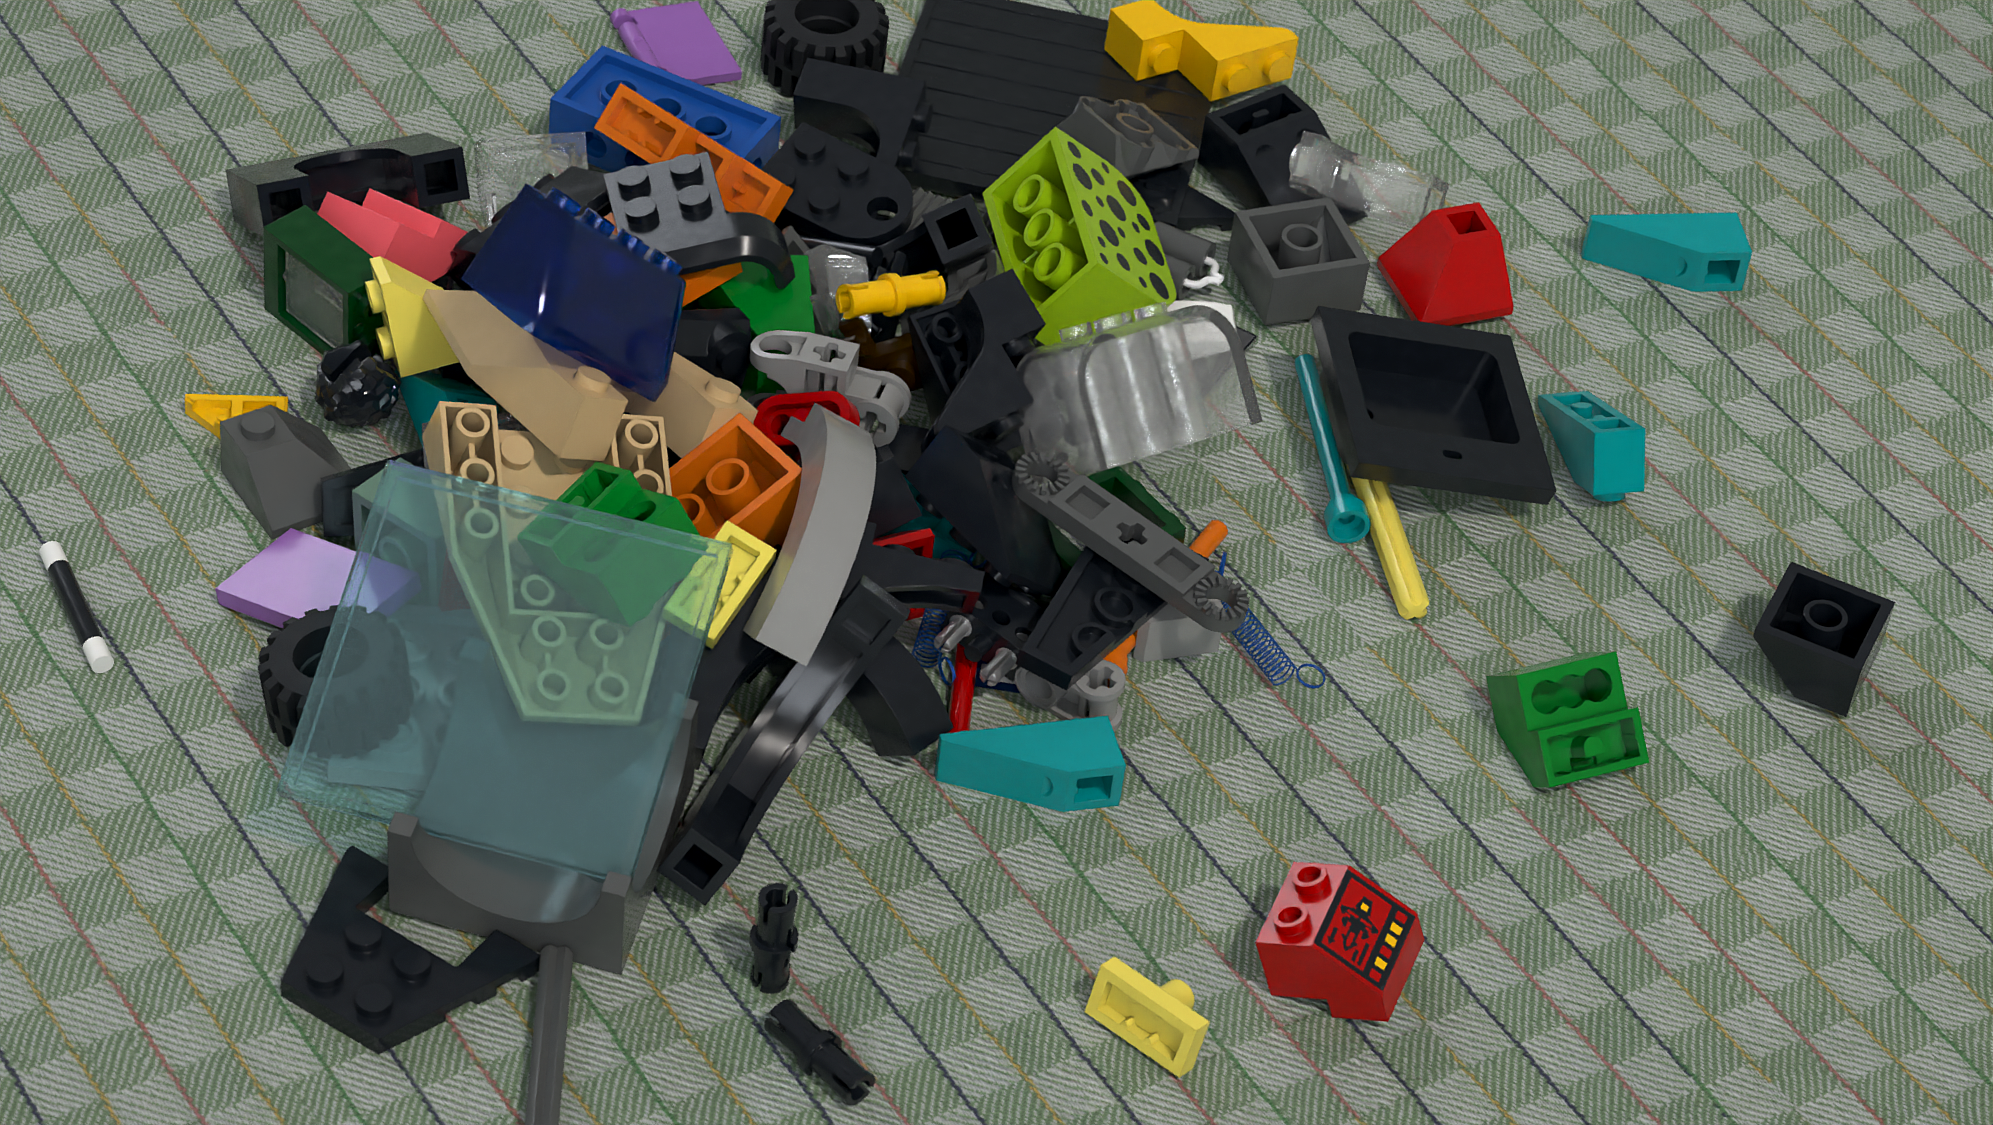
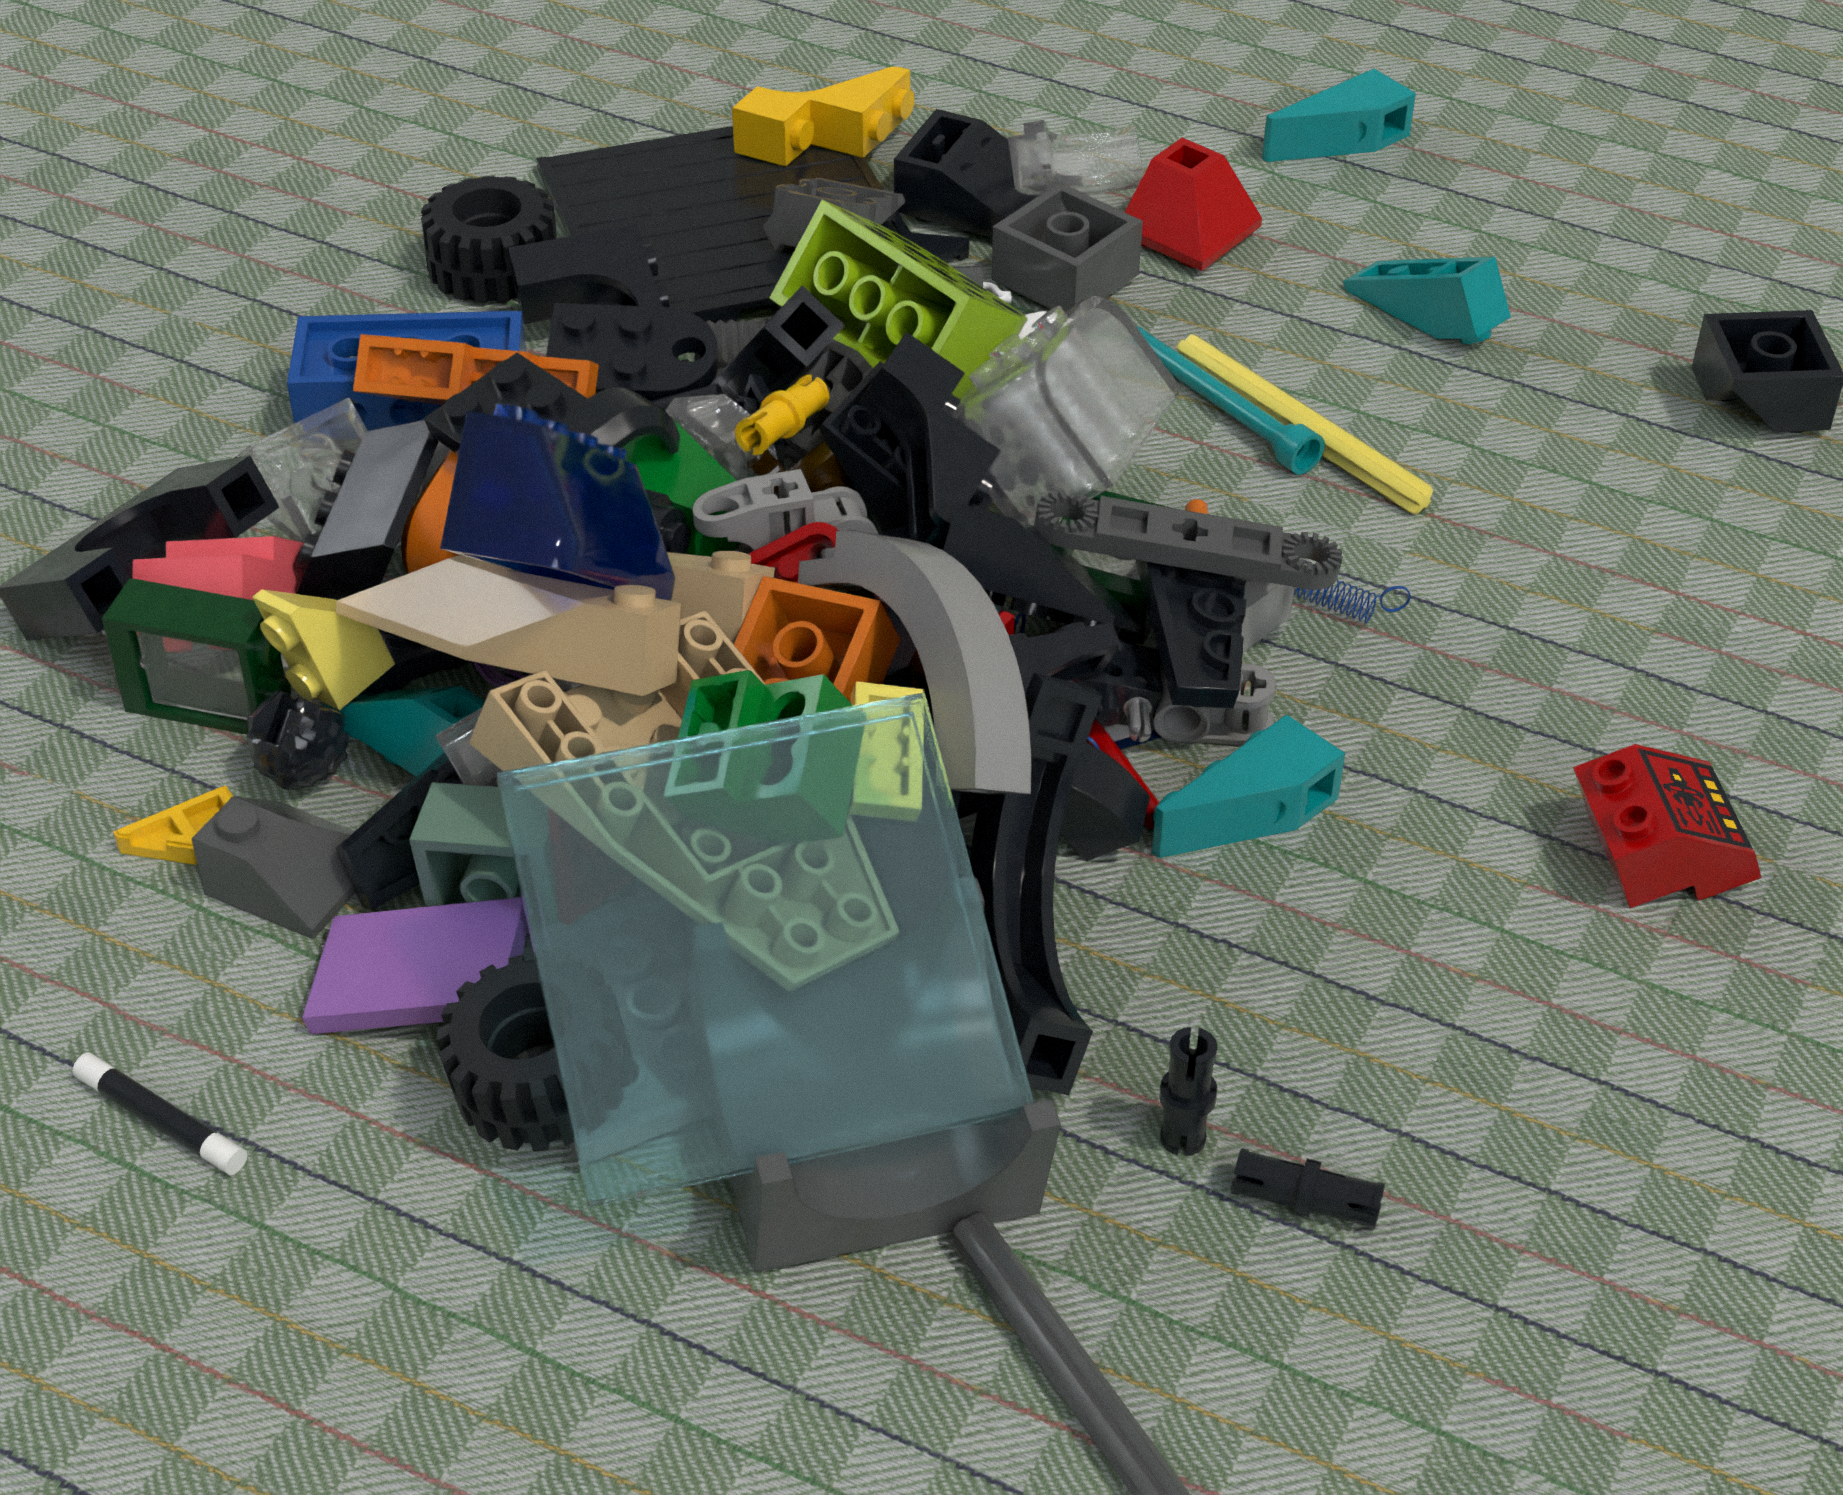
camera: 25 degrees left, 0 degrees up
(376, 980) = (802, 1358): black wing -> none
(678, 41) = (340, 289): medium lavender piece -> none
(1149, 1016) = (1569, 983): light yellow tile -> none
(1430, 406) = (1295, 320): black piece -> none
(1567, 718) = (1641, 531): green piece -> none

